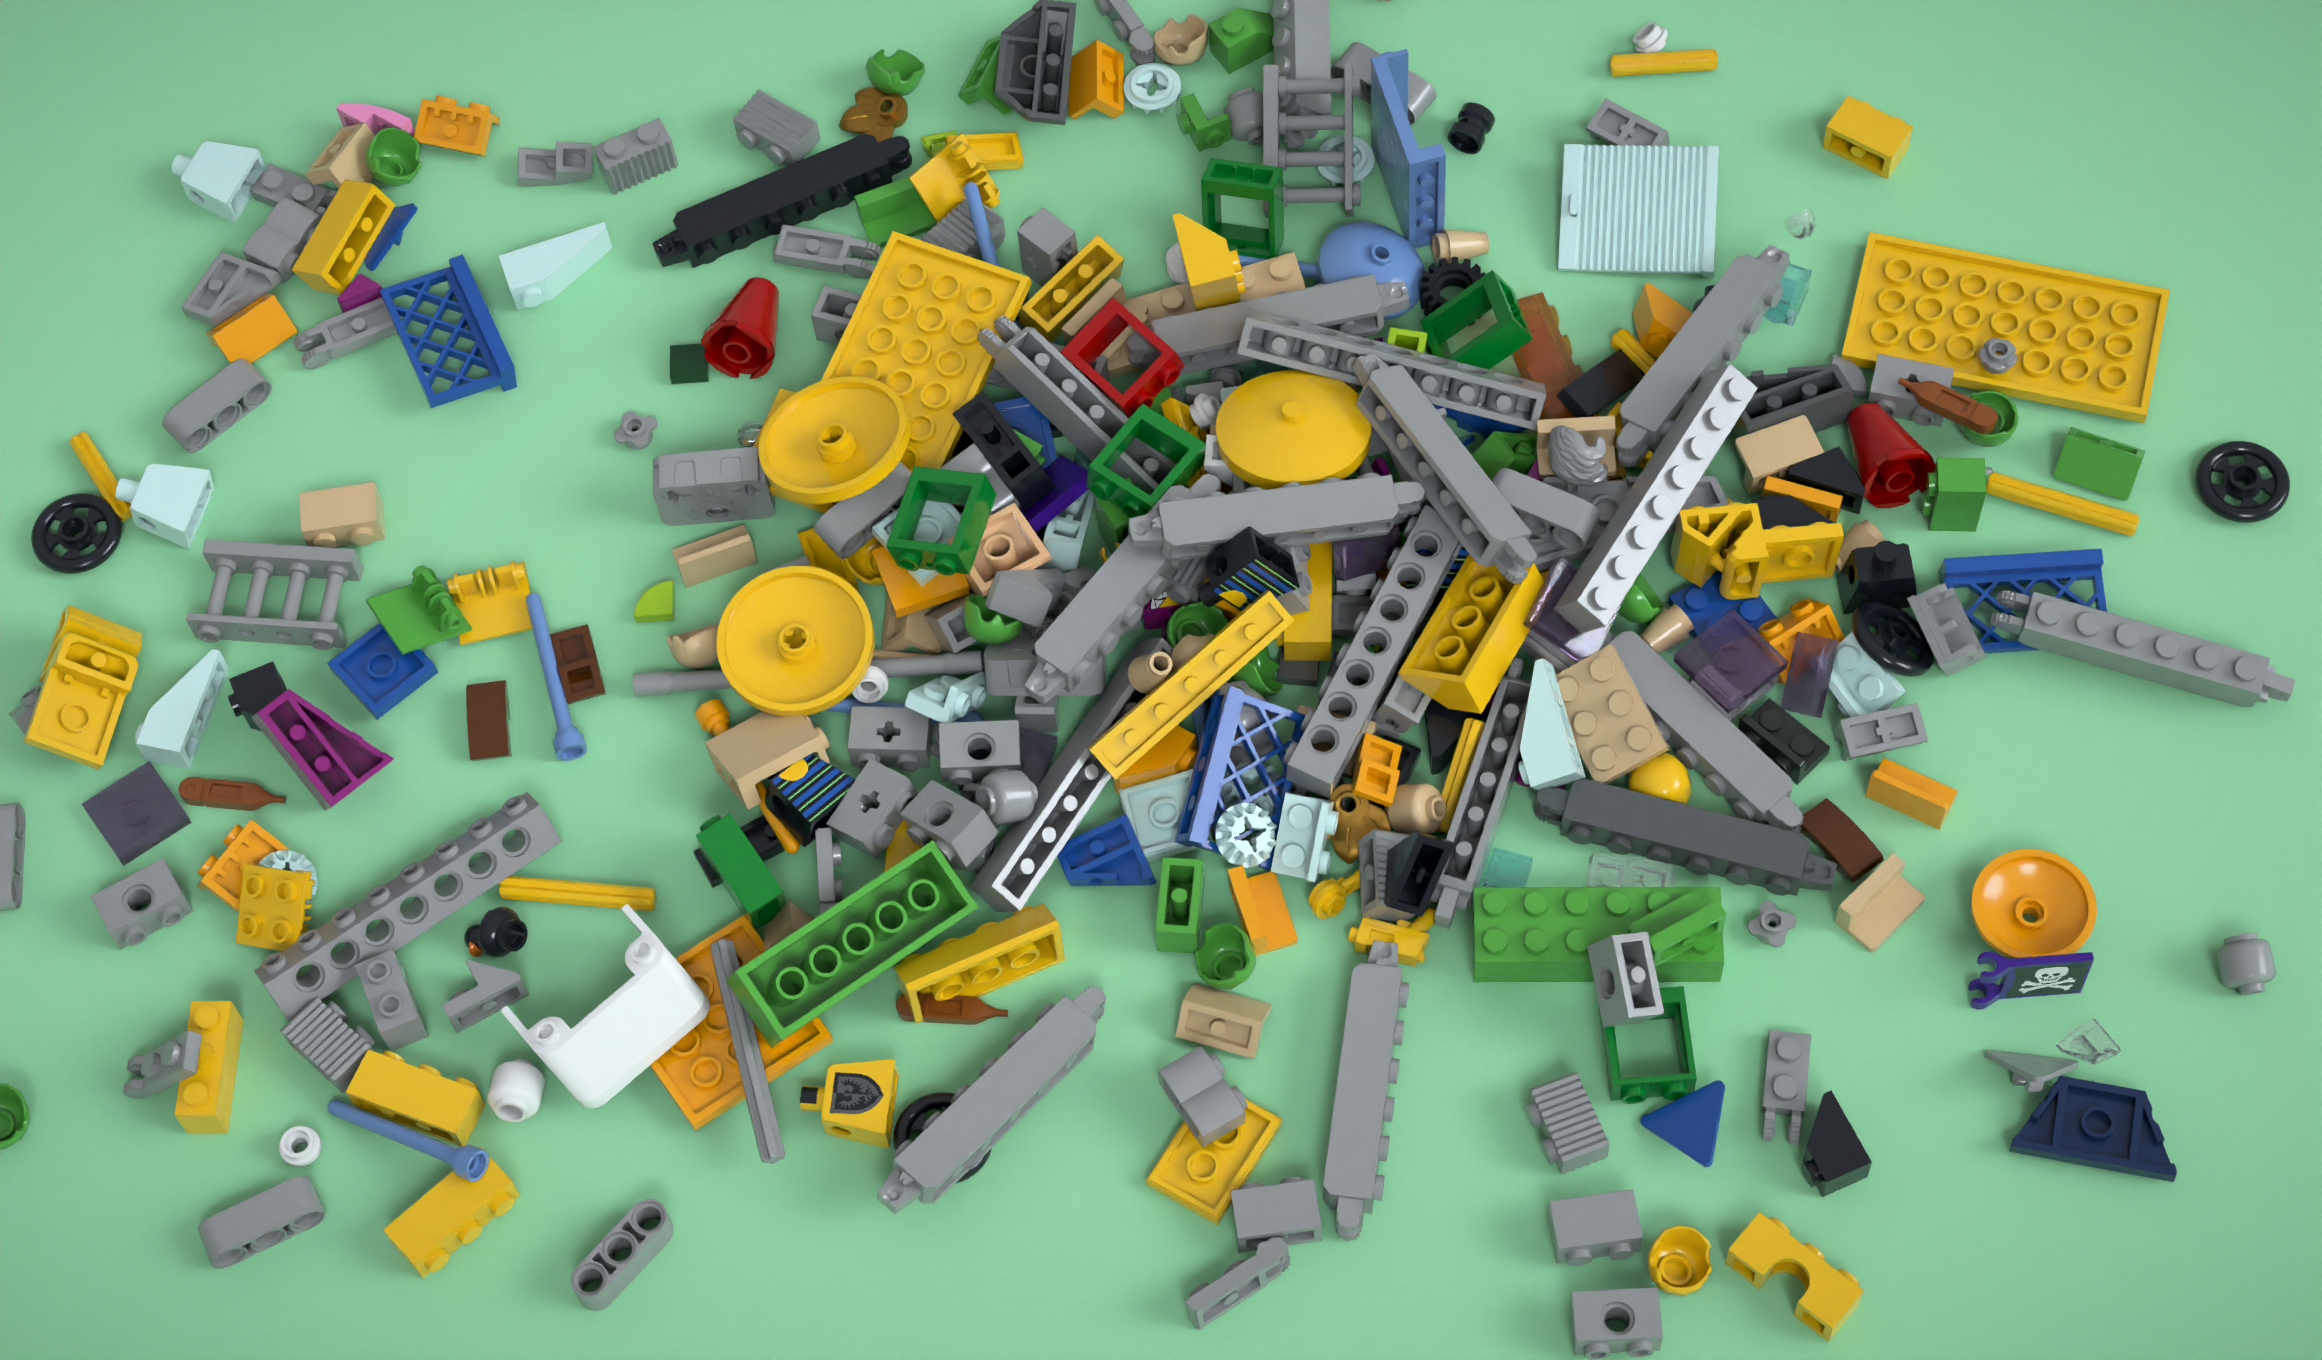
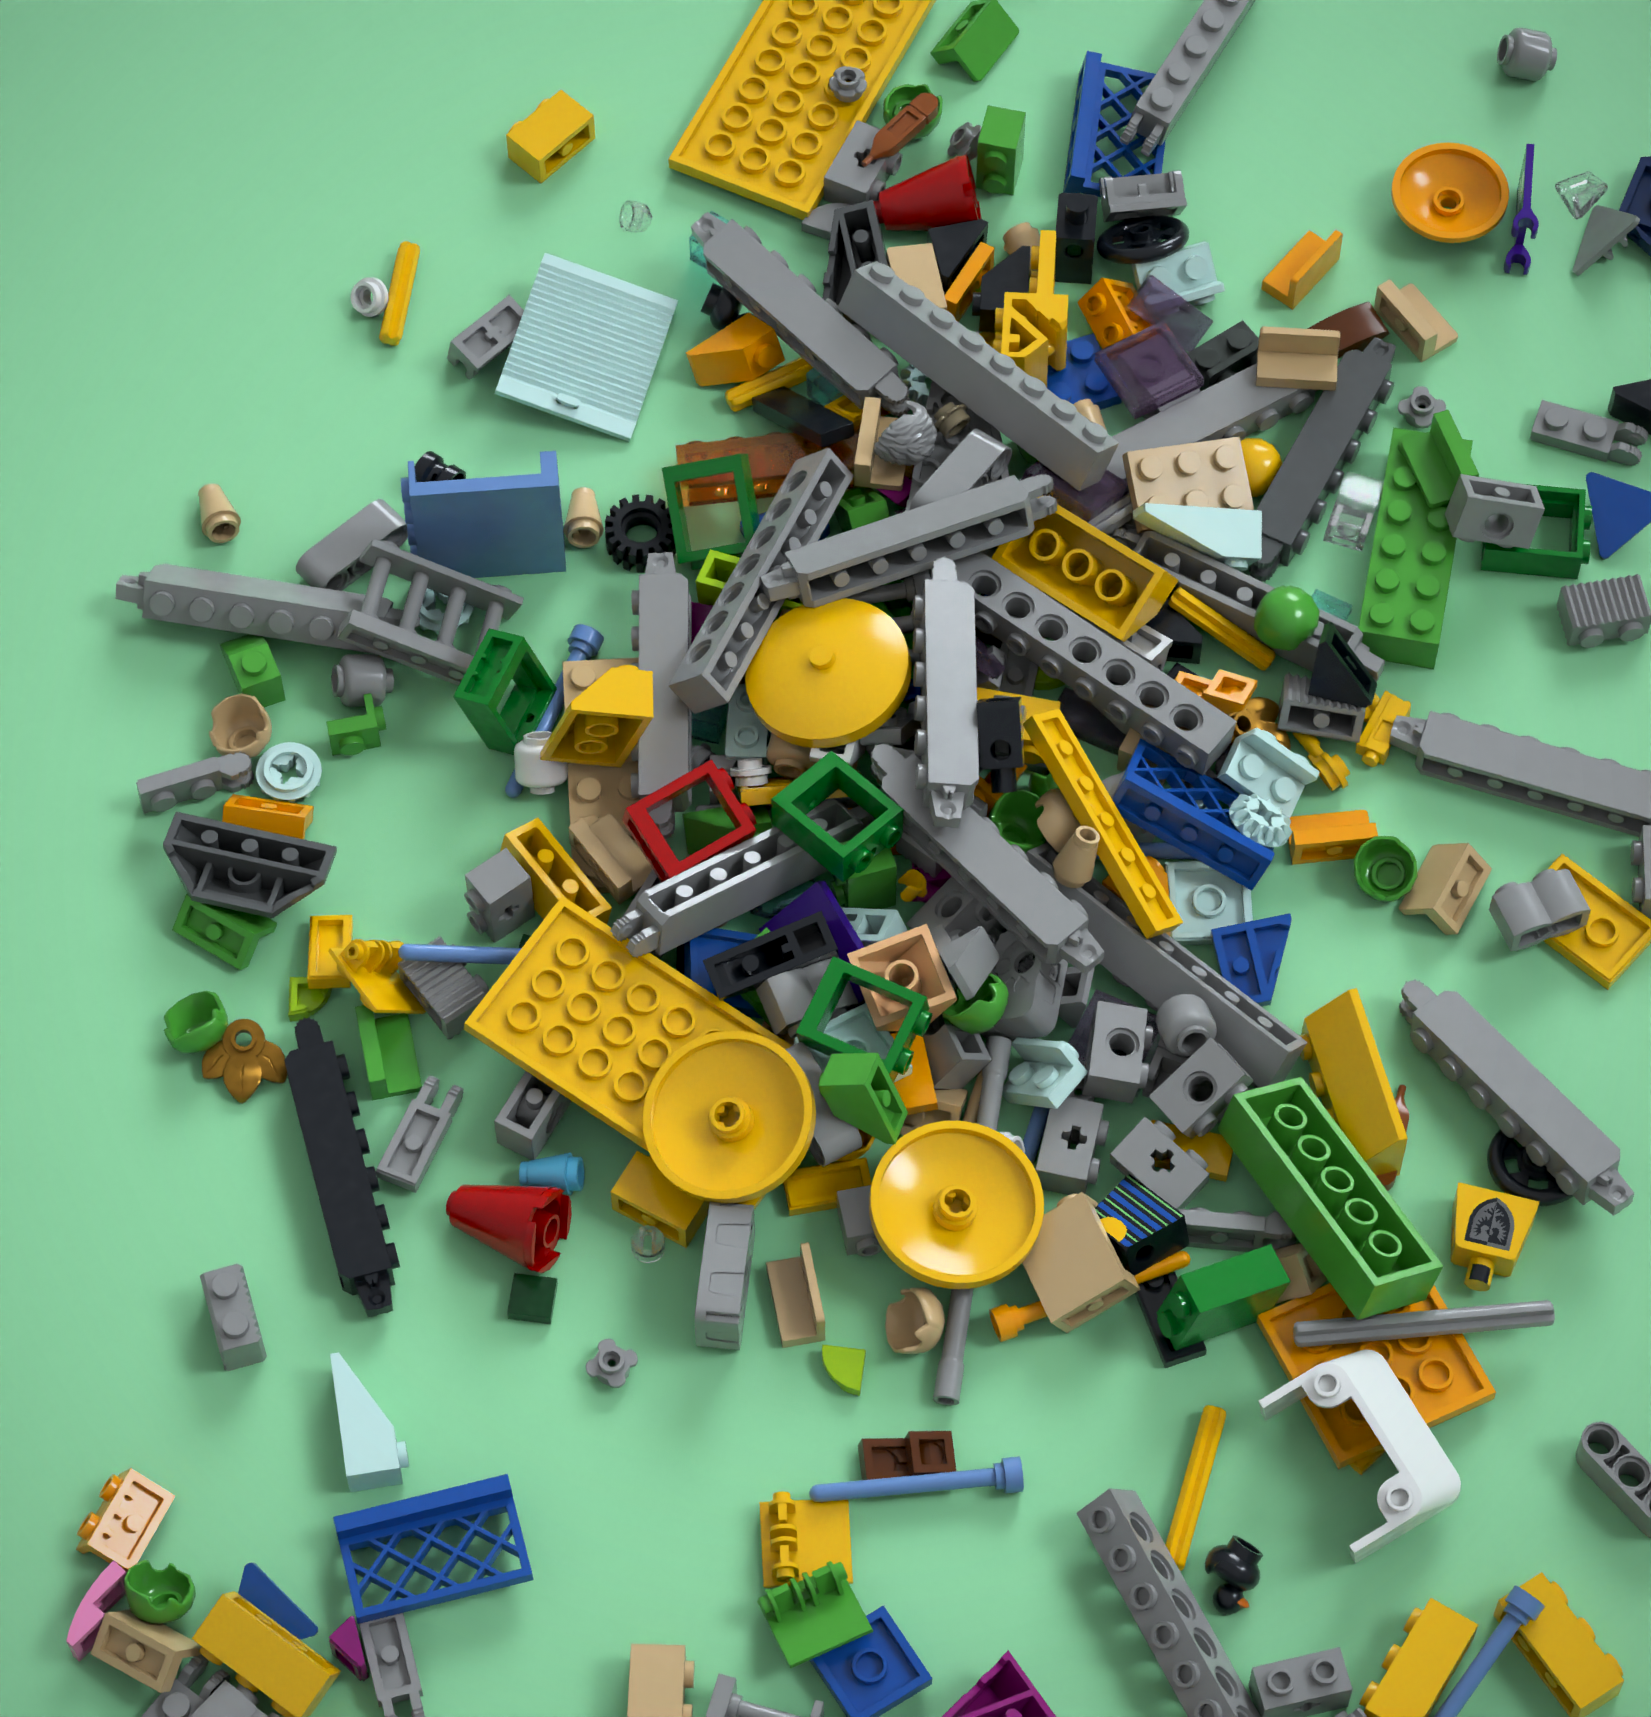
camera: 85 degrees left, 0 degrees up
(488, 720) = (962, 1557): reddish brown slope -> none
(494, 991) = (1304, 1583): light grey slope -> none
(516, 1090) = (1426, 1567): white head -> none
(560, 166) = (210, 1416): light grey slope -> none
(775, 129) = (238, 1162): light grey brick -> none
(802, 354) = (554, 1171): none -> medium azure cone
(866, 536) = (863, 1094): none -> bright green slope
(1180, 905) = (1324, 896): bright green brick -> none
(1356, 252) = (589, 600): medium blue dish -> none
(1416, 809) = (1257, 664): tan head -> none
(1462, 813) = (1286, 617): none -> bright green hair
(1608, 491) = (951, 419): none -> dark tan plate
(1771, 787) = (1297, 358): none -> tan panel
(1880, 731) = (1242, 269): light grey hinge -> none
(2062, 503) = (1019, 71): yellow axle -> none

